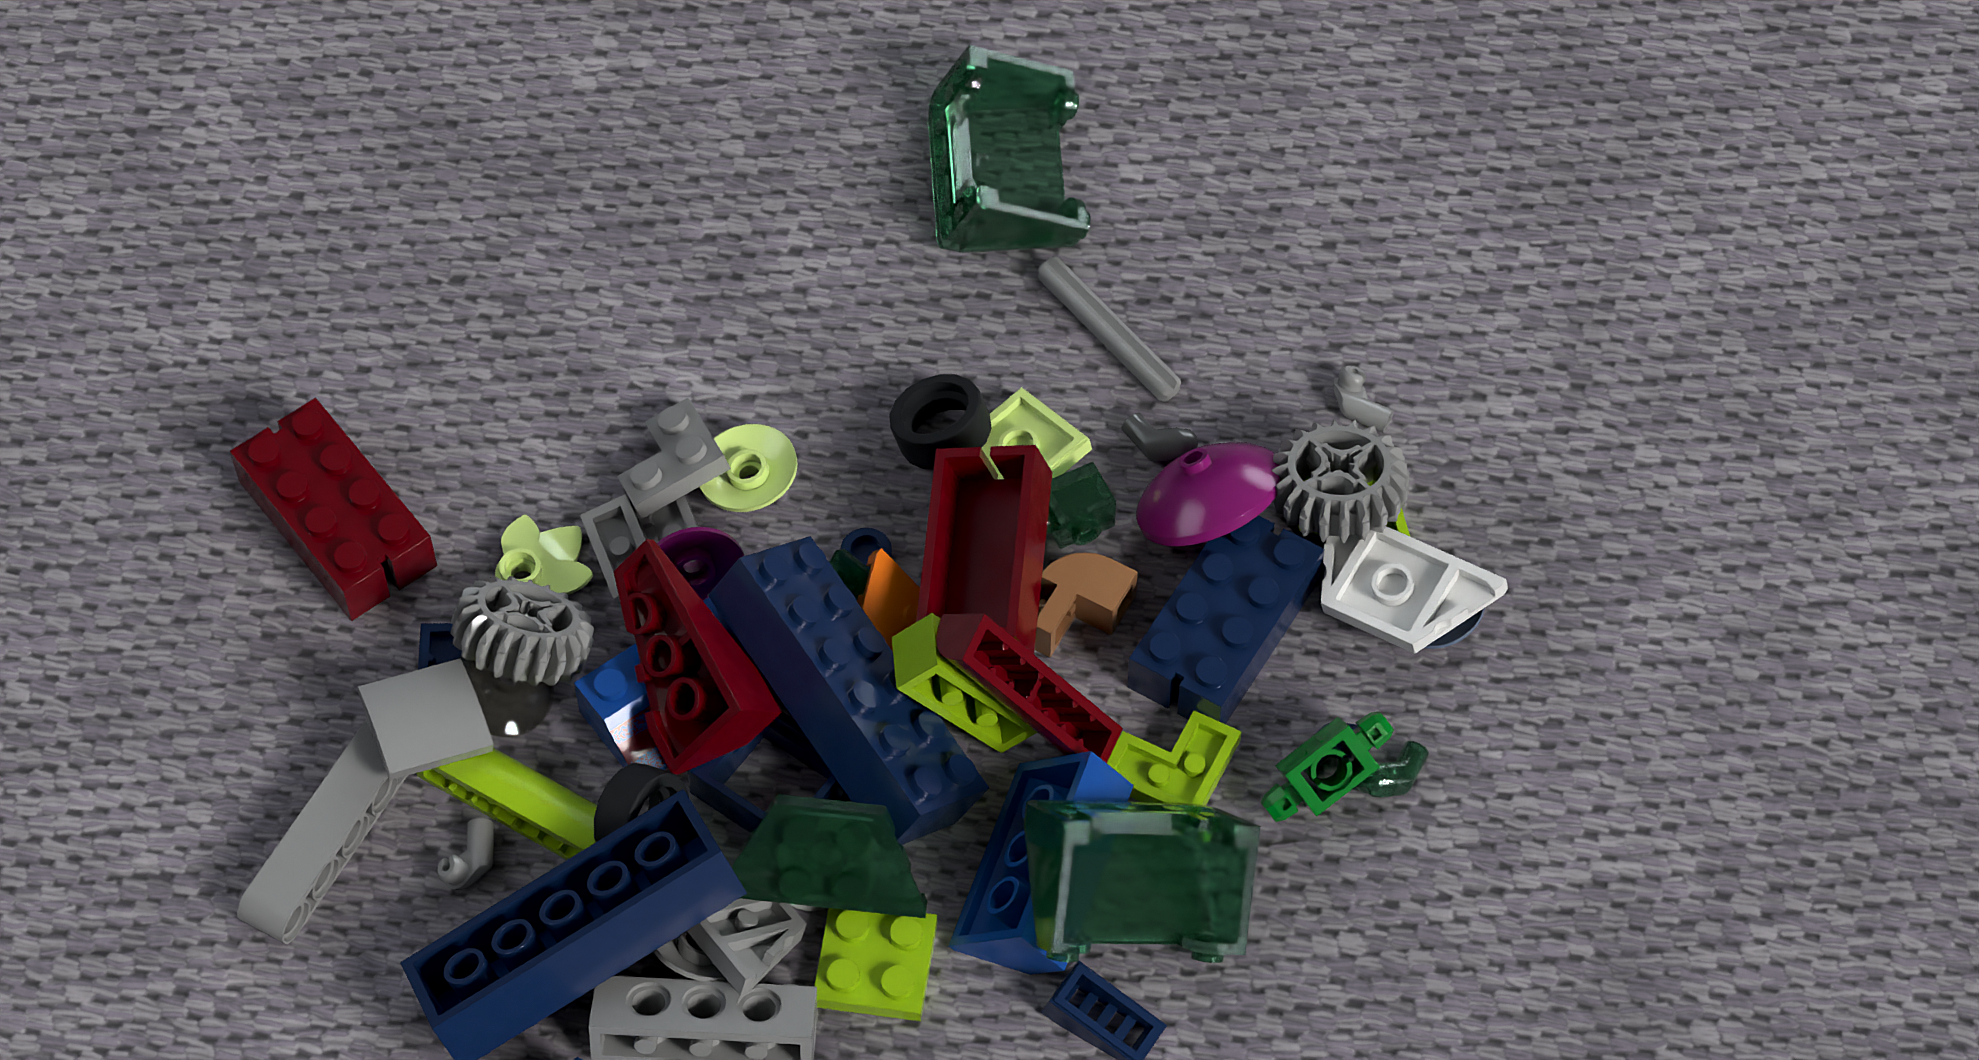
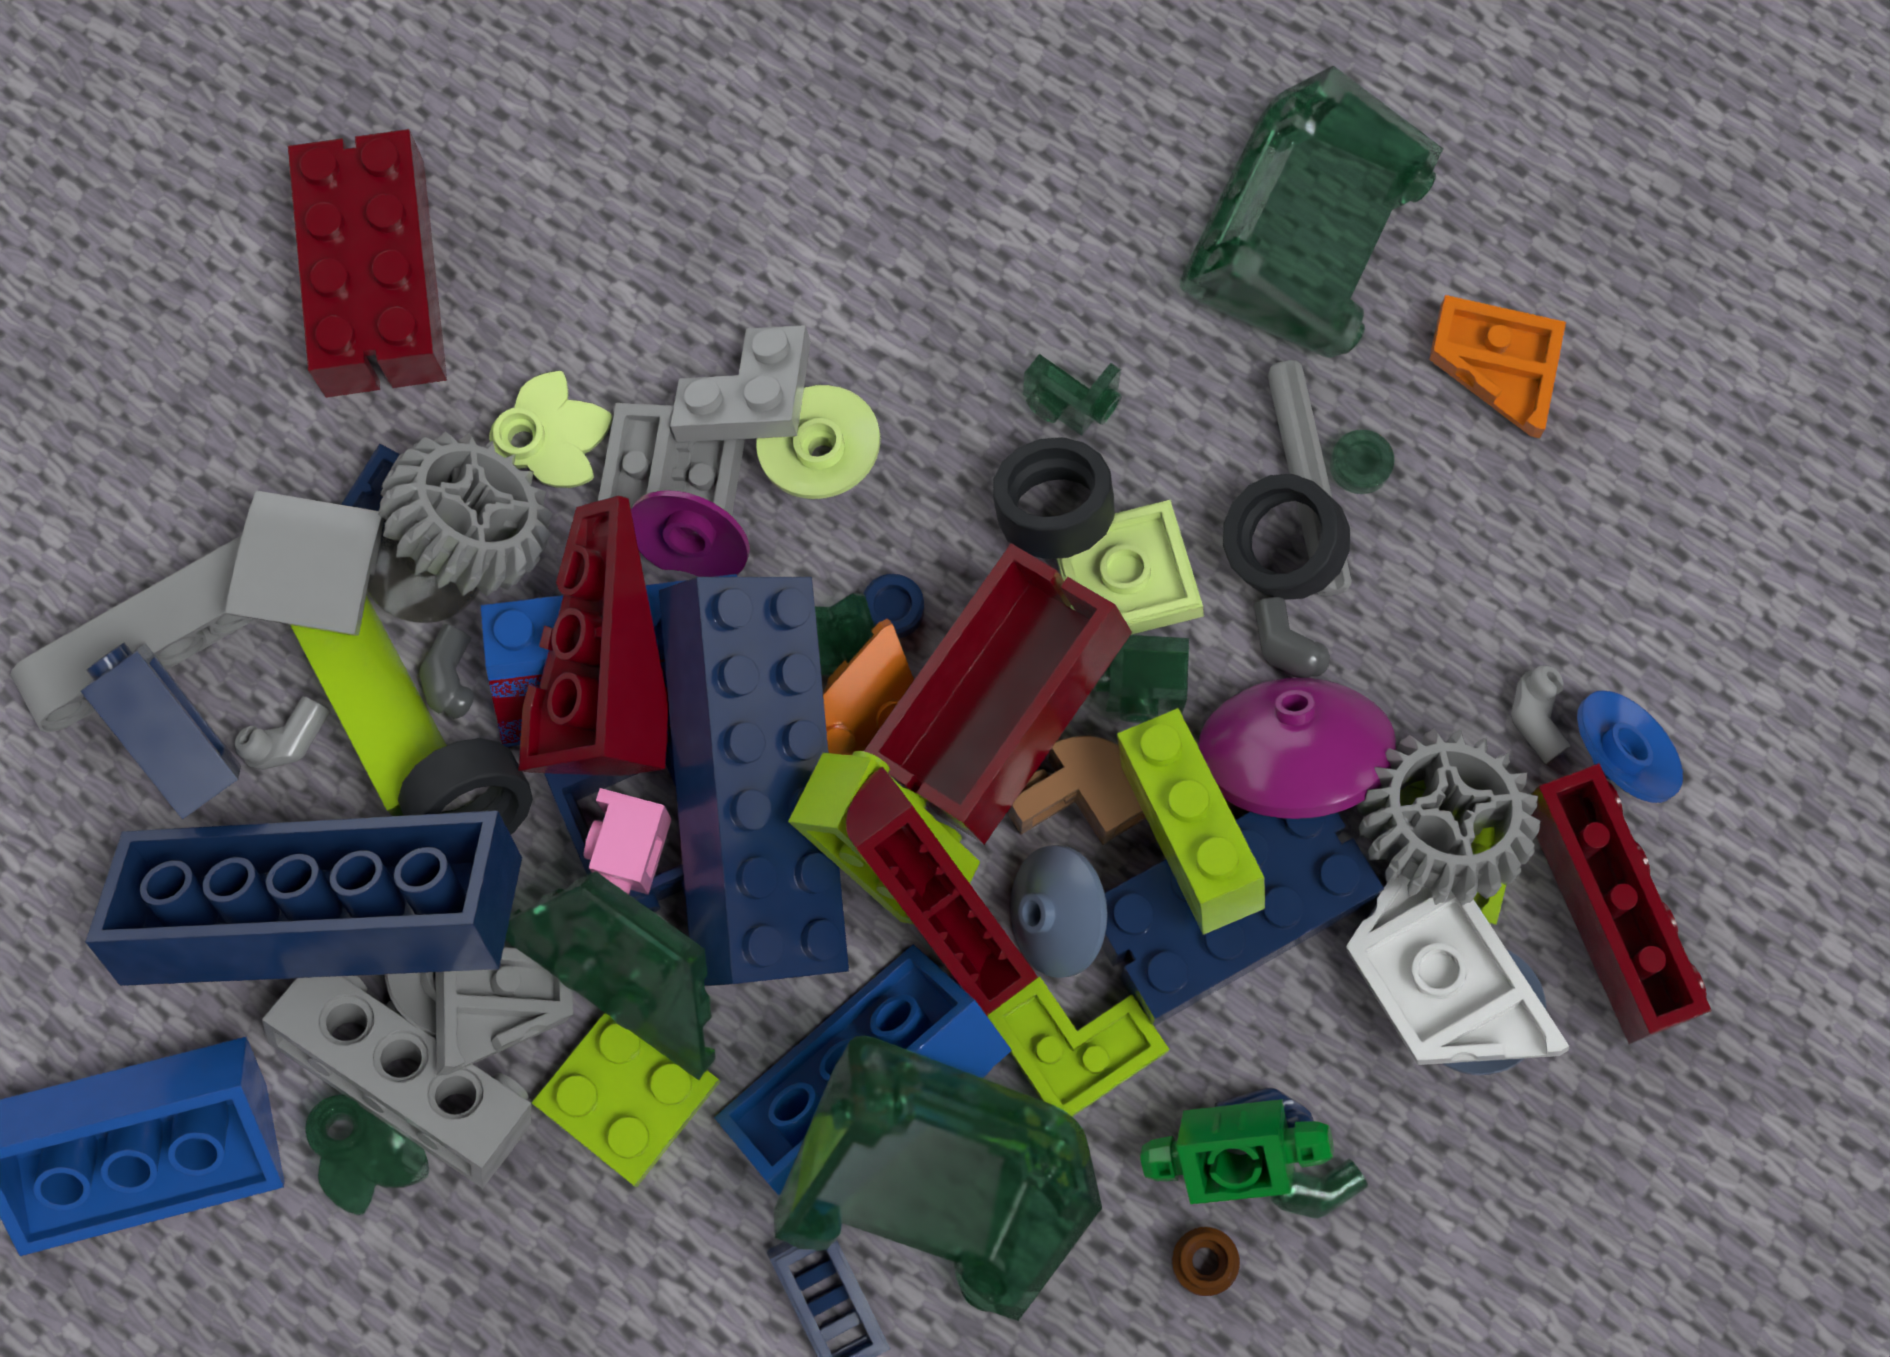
camera: 30 degrees right, 15 degrees up
(390, 872) = (160, 728): none -> dark blue window
(562, 758) = (439, 673): none -> dark grey arm
(779, 766) = (627, 841): none -> bright pink brick
(907, 356) = (1061, 397): none -> clear green bracket
(1091, 345) = (1254, 504): none -> black tyre
(1125, 675) = (1058, 911): none -> sand blue dish
(1139, 302) = (1362, 461): none -> clear green tile
(1170, 560) = (1191, 821): none -> lime brick
(1193, 189) = (1500, 357): none -> orange wing
(1352, 842) = (1221, 1246): none -> reddish brown plate
(1432, 390) = (1630, 746): none -> blue dish
(1486, 489) = (1617, 905): none -> dark red brick

